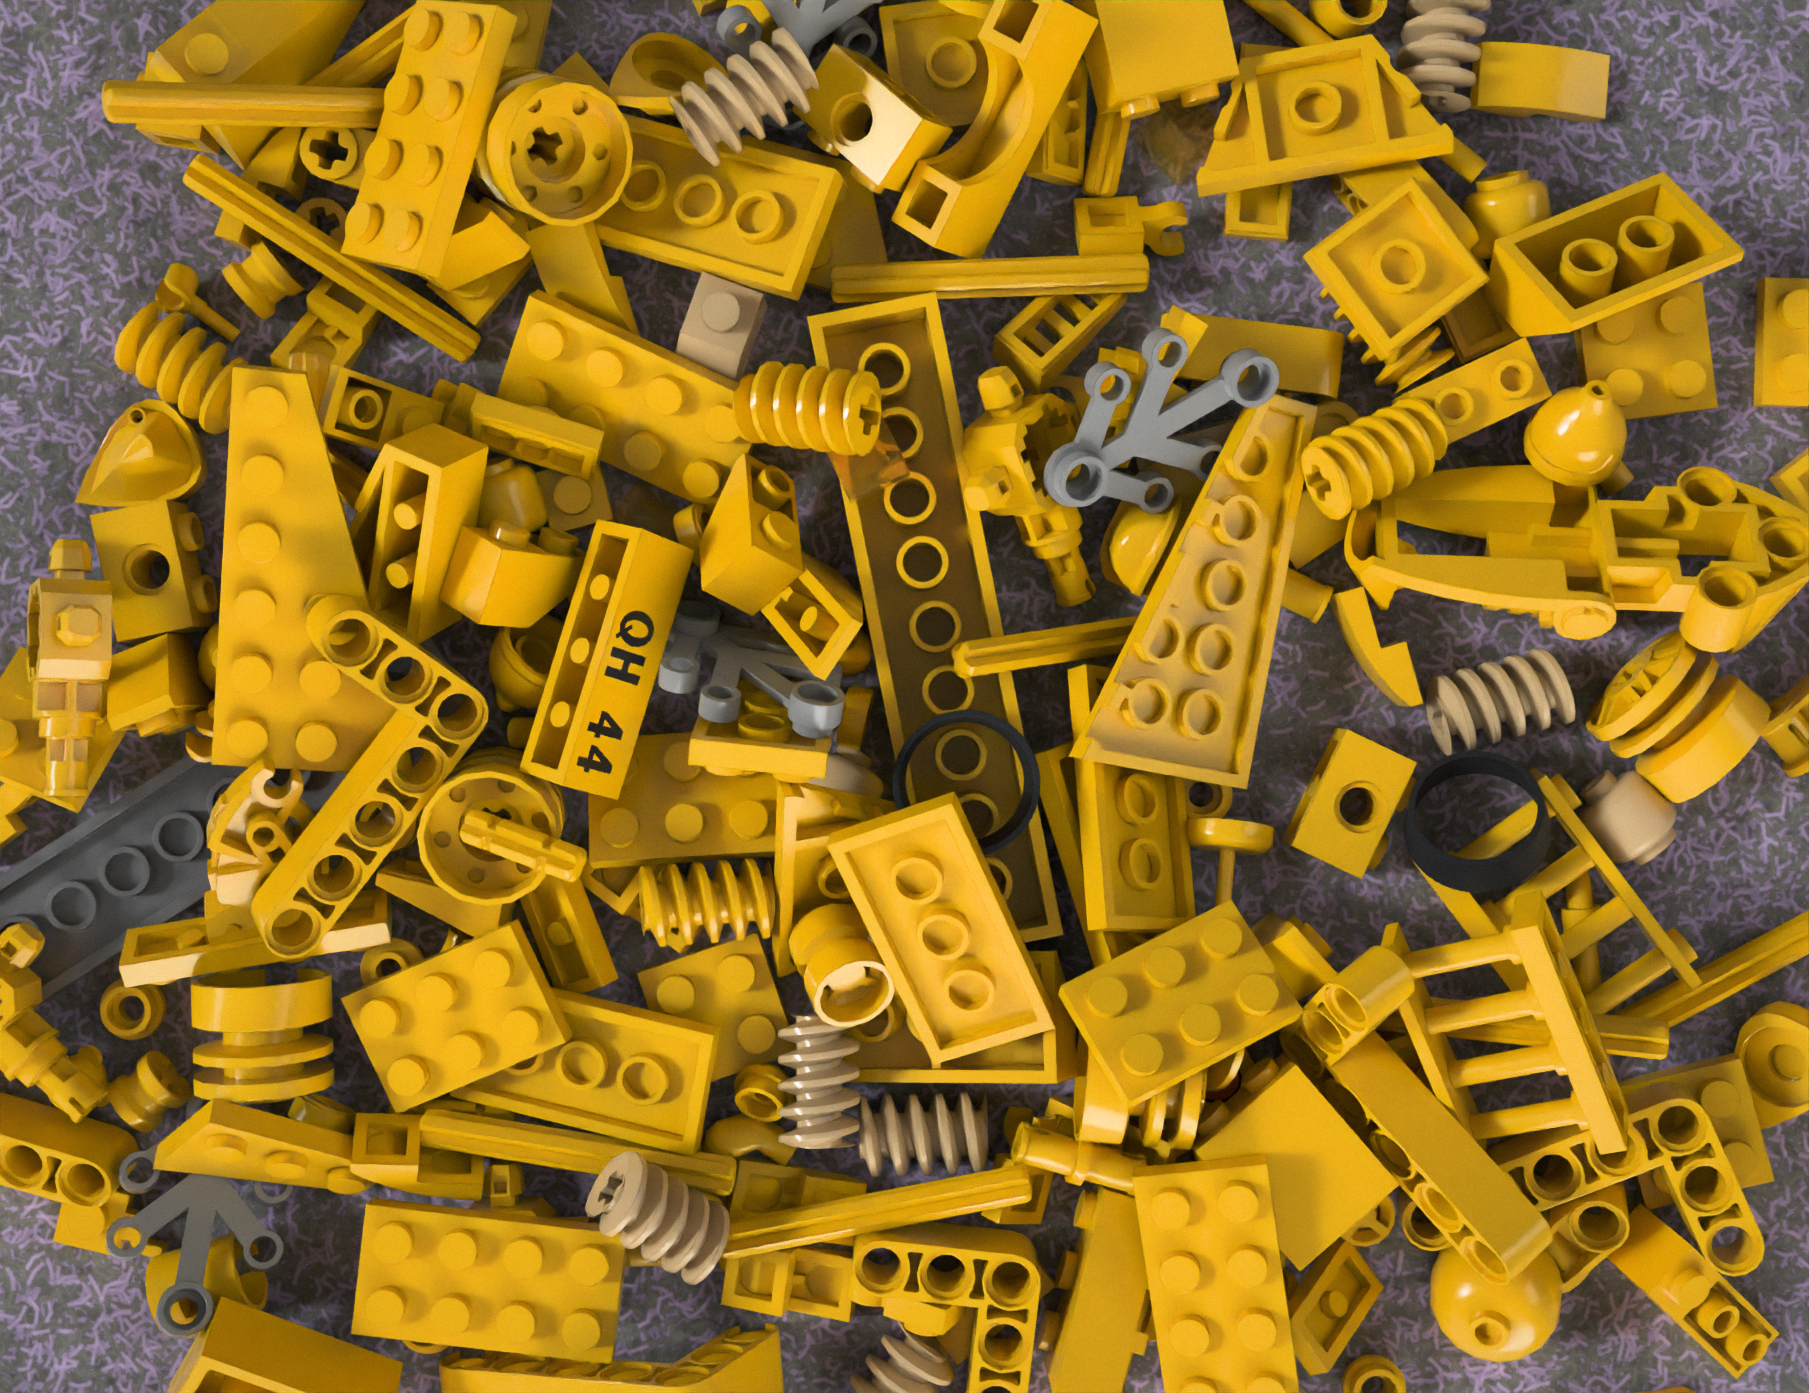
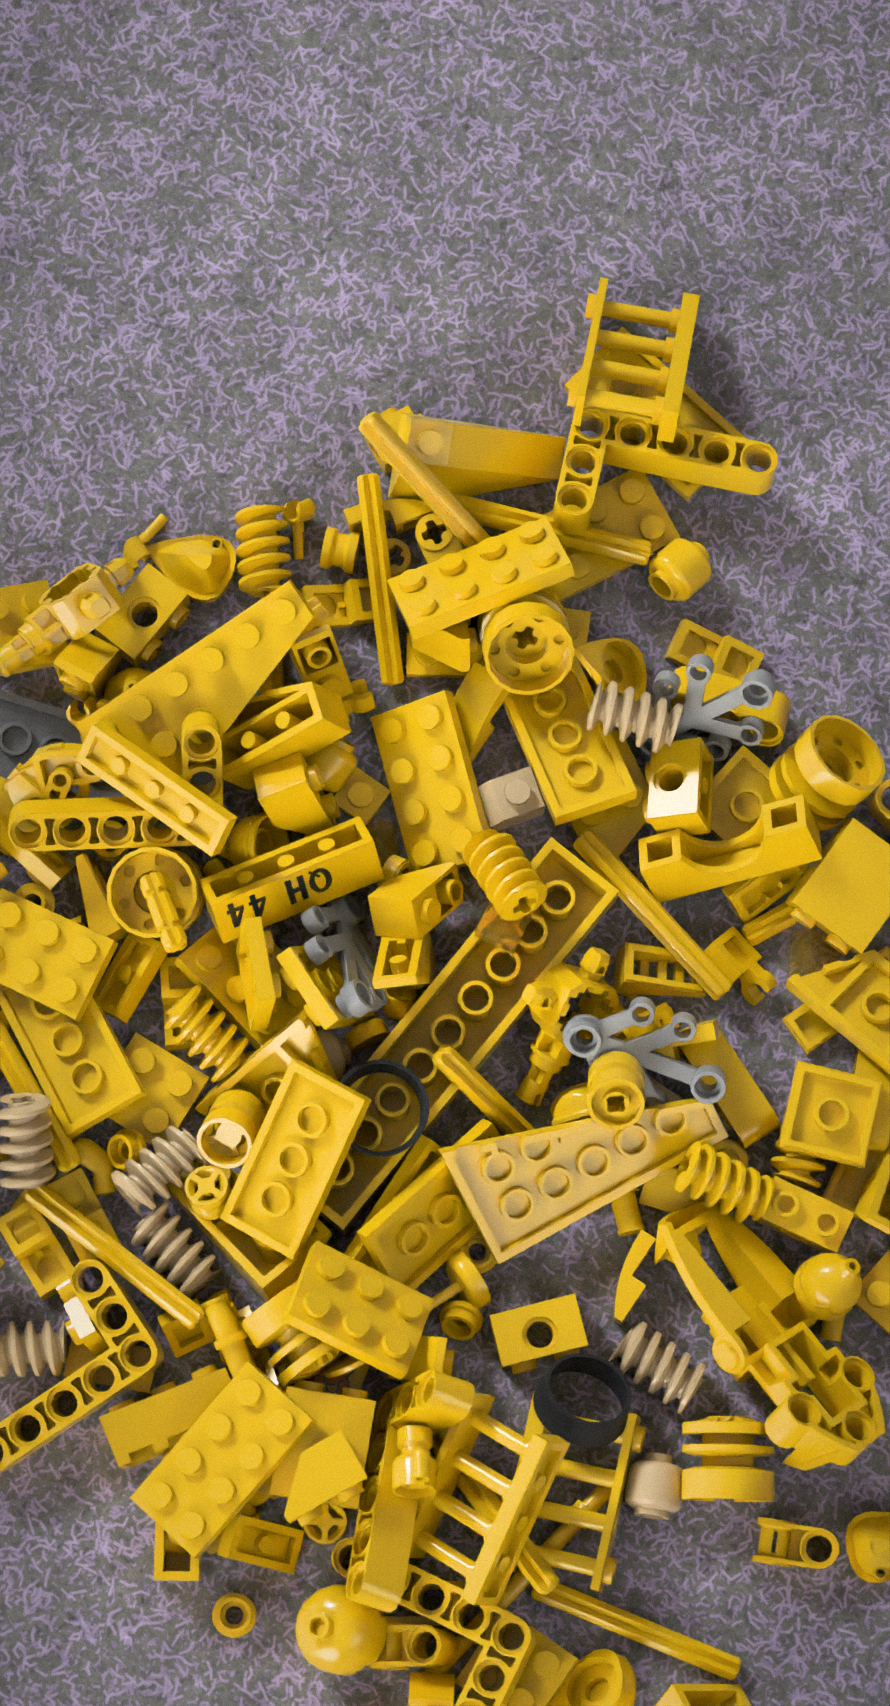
camera: 45 degrees right, 10 degrees down
(63, 512) = (135, 546): none -> yellow hand
(364, 738) = (156, 788): none -> yellow plate
(536, 435) = (376, 751): yellow plate -> none
(667, 781) = (258, 982): none -> yellow plate
(878, 1051) = (206, 1182): none -> yellow wheel
(1173, 492) = (616, 1090): none -> yellow wheel
(1262, 877) = (460, 1319): none -> yellow plate
(1342, 1201) = (323, 1474): none -> yellow slope
(1411, 1087) = (414, 1470): none -> yellow piece

